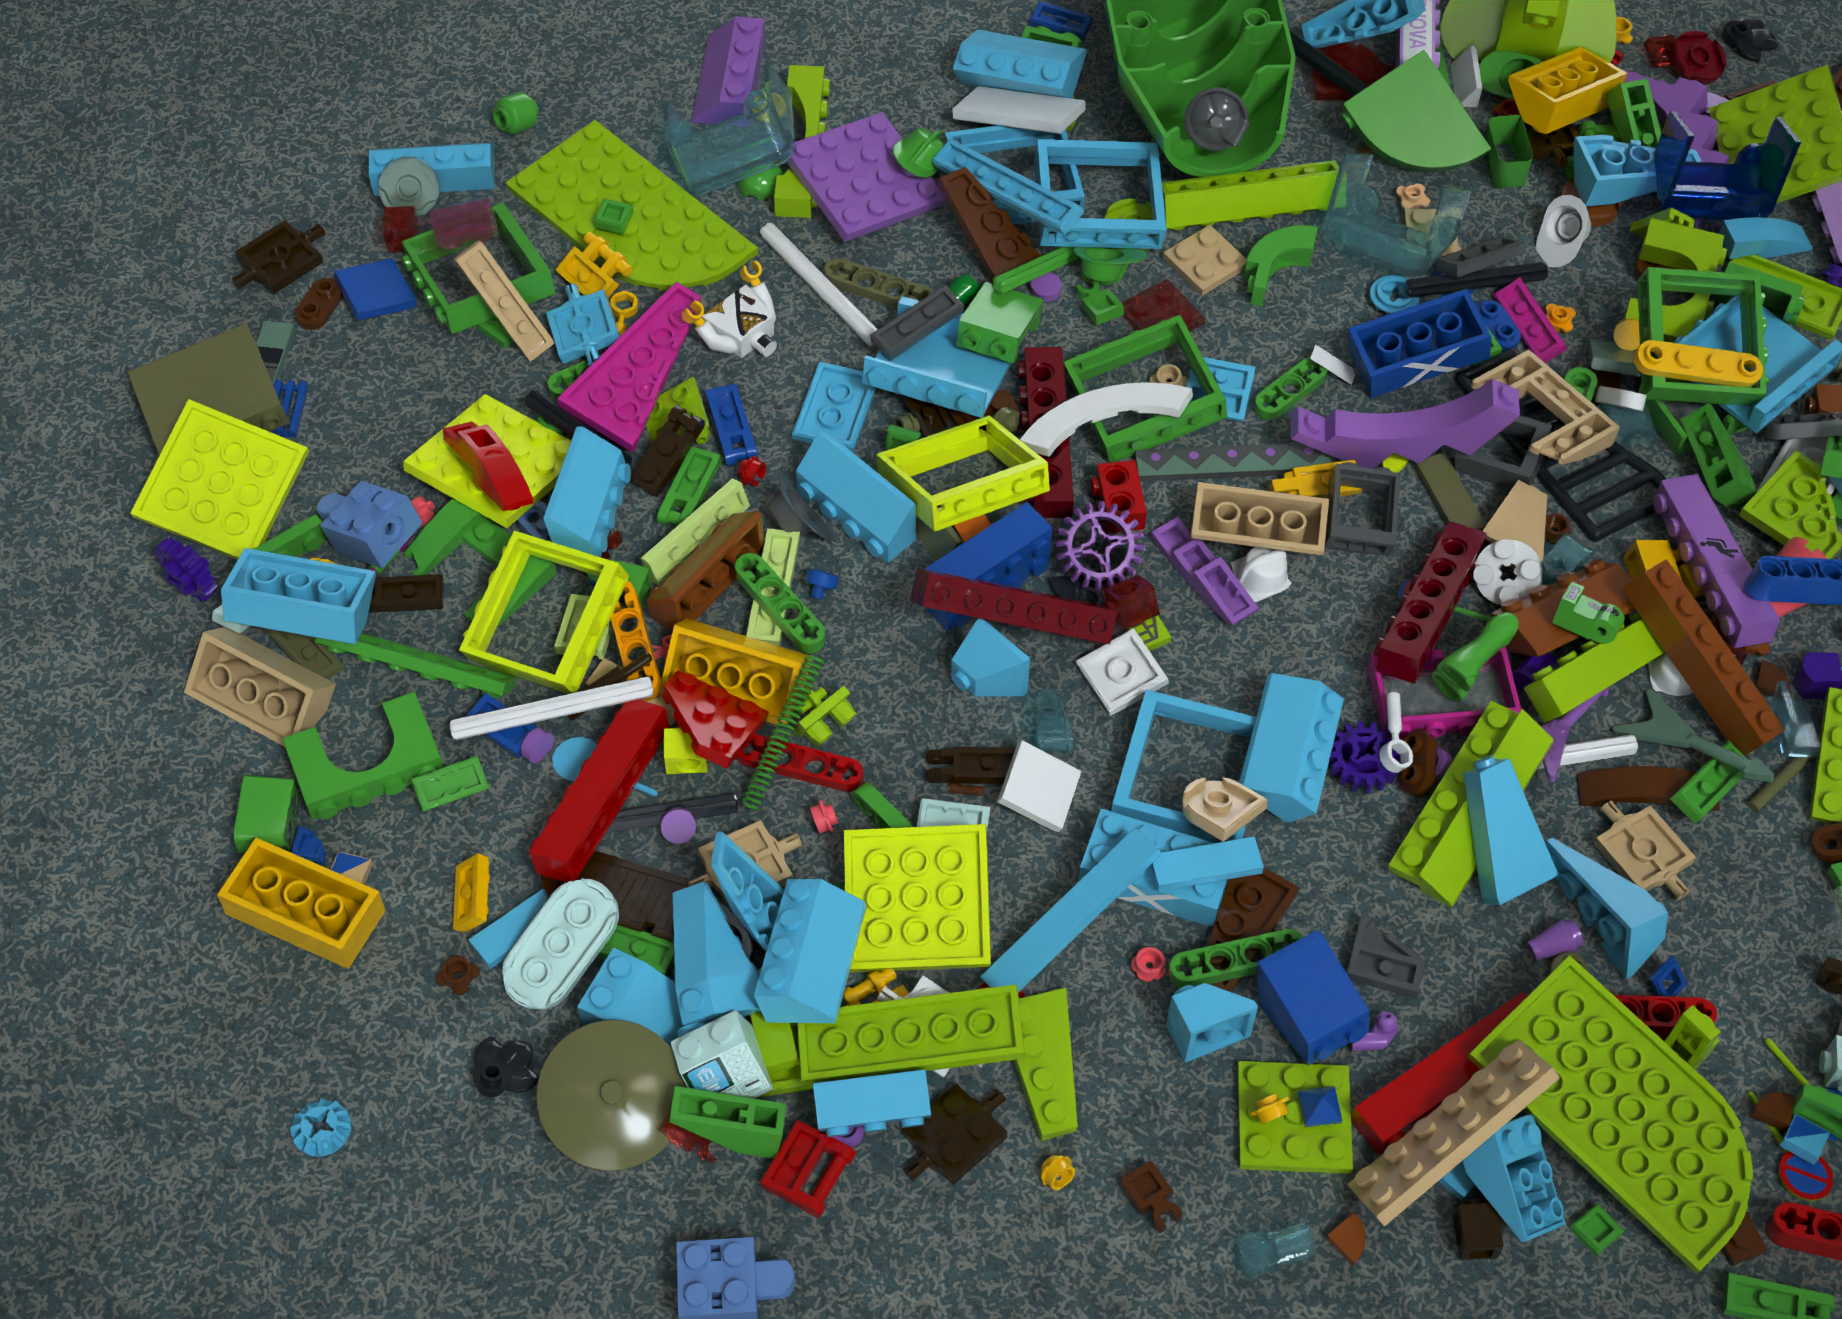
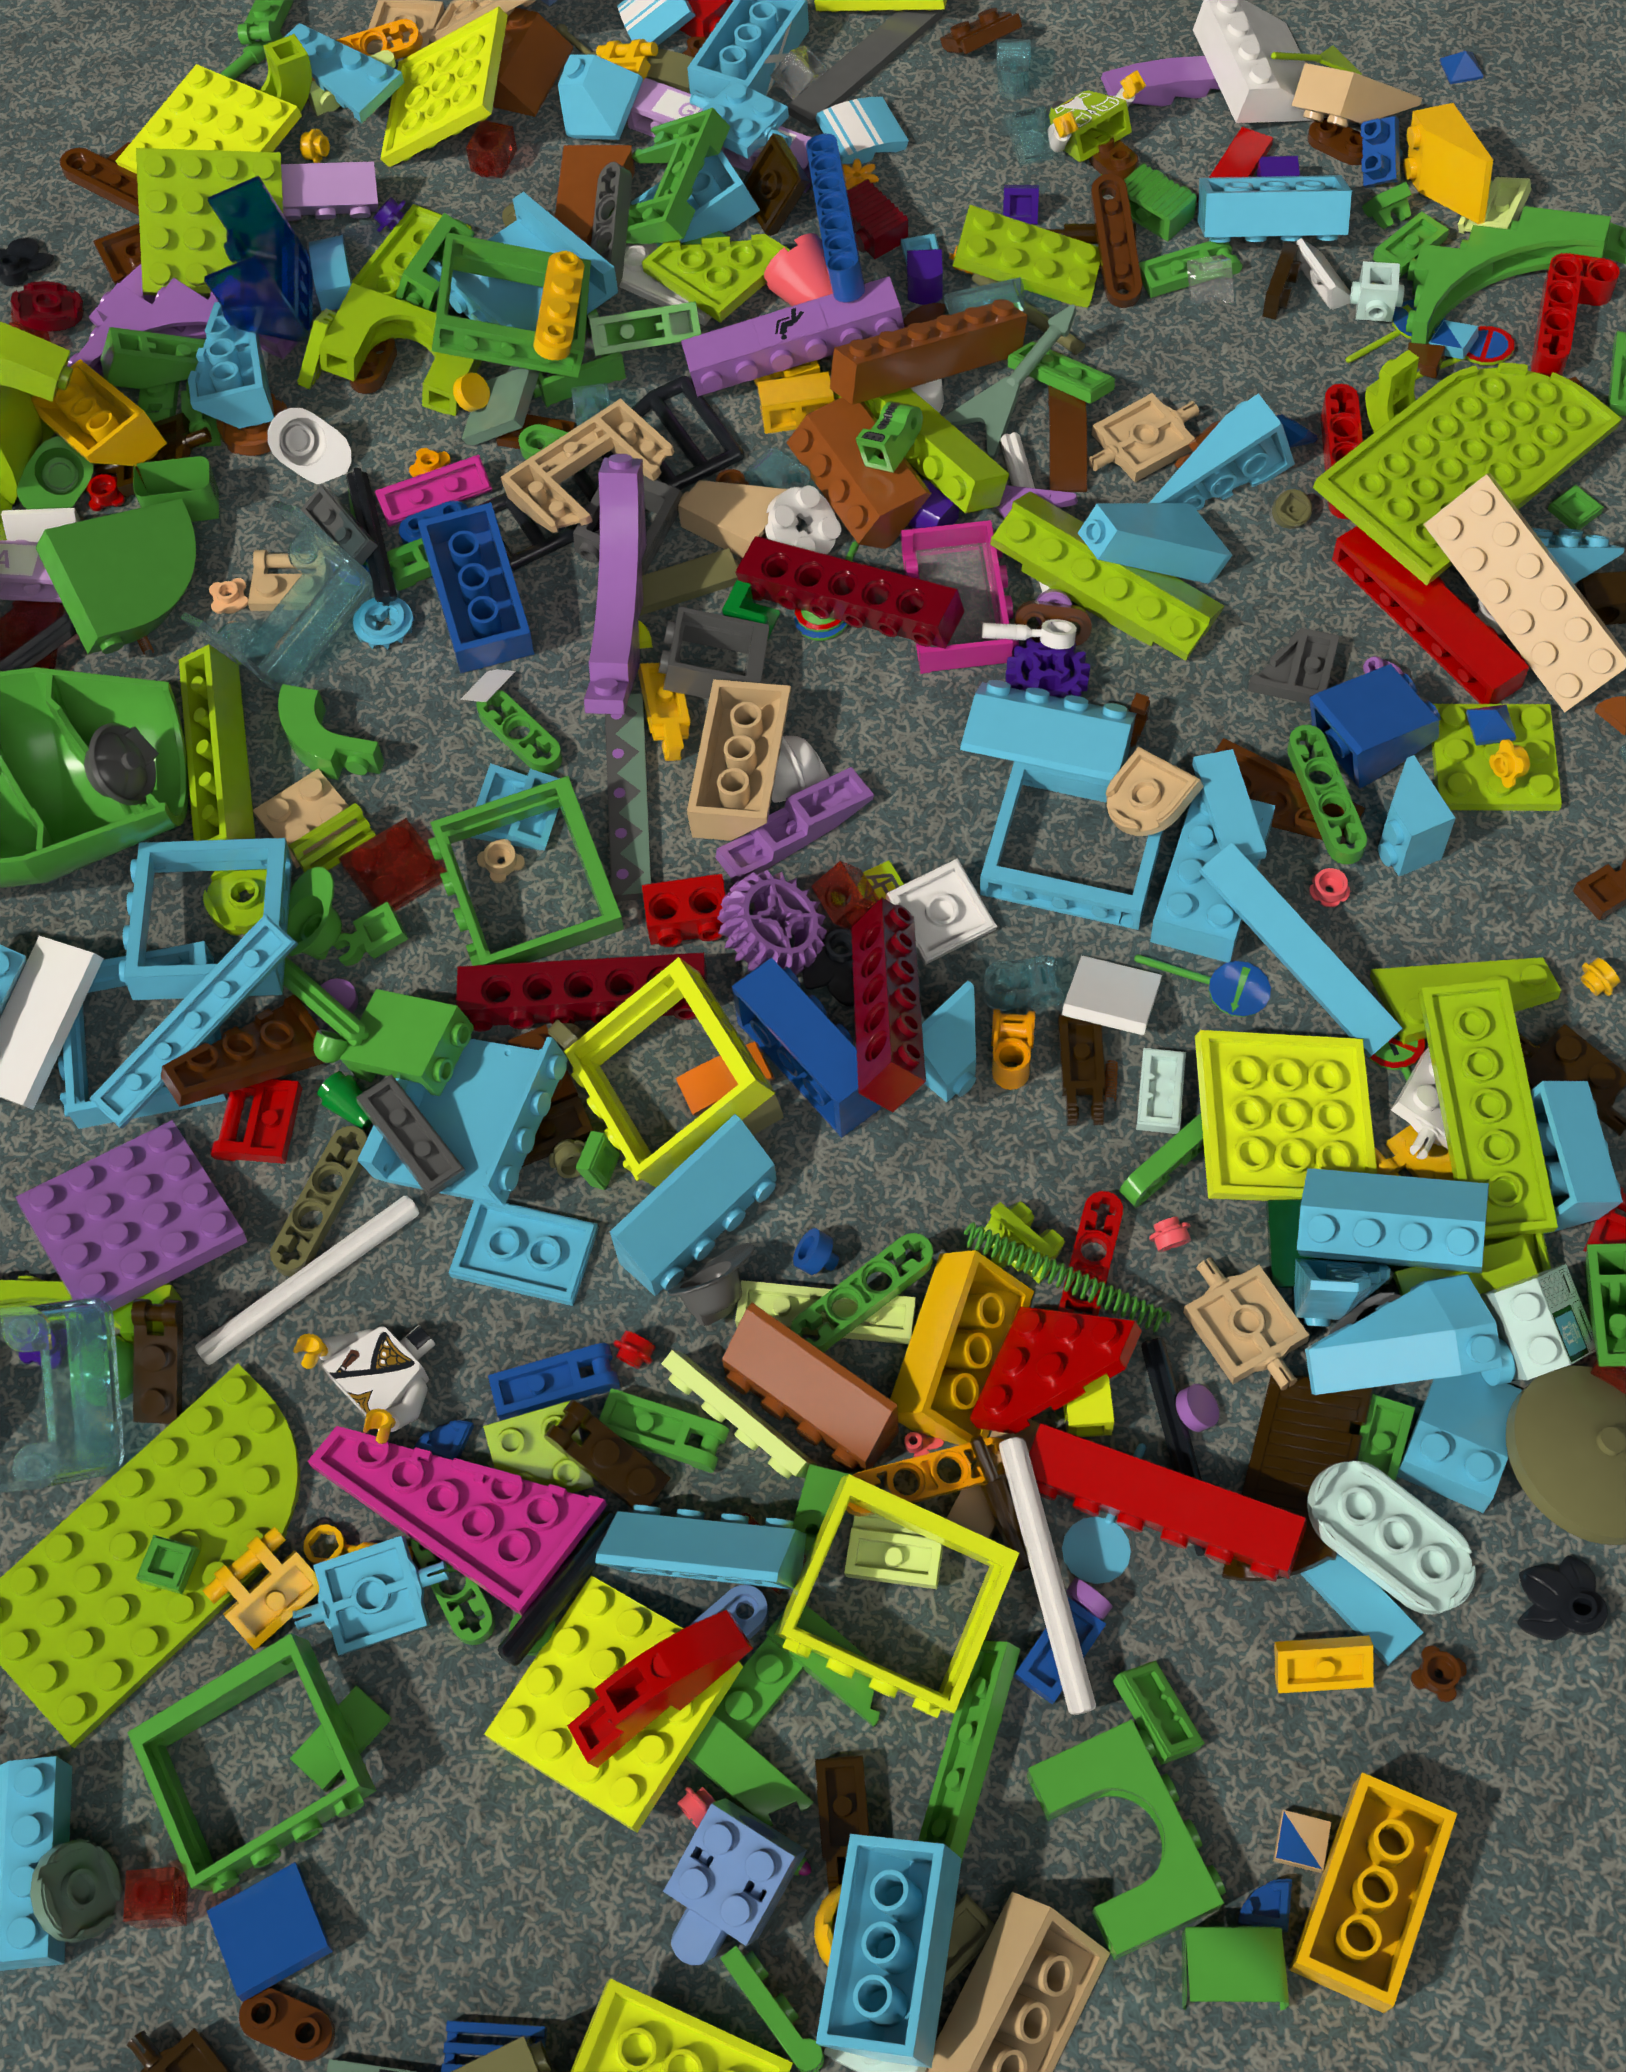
camera: 85 degrees left, 5 degrees up
(463, 223) = (184, 1778): clear pink bracket -> none
(504, 300) = (344, 1697): tan plate -> none
(692, 366) = (447, 1440): none -> blue tile
(756, 197) = (157, 1361): none -> dark brown plate
(918, 150) = (97, 1144): bright green piece -> none
(942, 248) = (268, 1125): none -> red plate
(994, 270) = (329, 1046): none -> bright green hinge
(996, 714) = (1012, 1043): none -> light orange piece
(1051, 882) = (1234, 987): none -> blue piece
(1104, 403) = (563, 914): white tile -> none
(1178, 277) = (325, 829): none -> lime tile
(1319, 824) = (1140, 706): none -> reddish brown tile
(1416, 539) = (741, 606): none -> green panel
(1460, 669) = (939, 554): bright green piece -> none
(1558, 938) = (1259, 516): medium lavender cone -> none
(1621, 398) = (574, 398): white beam -> none

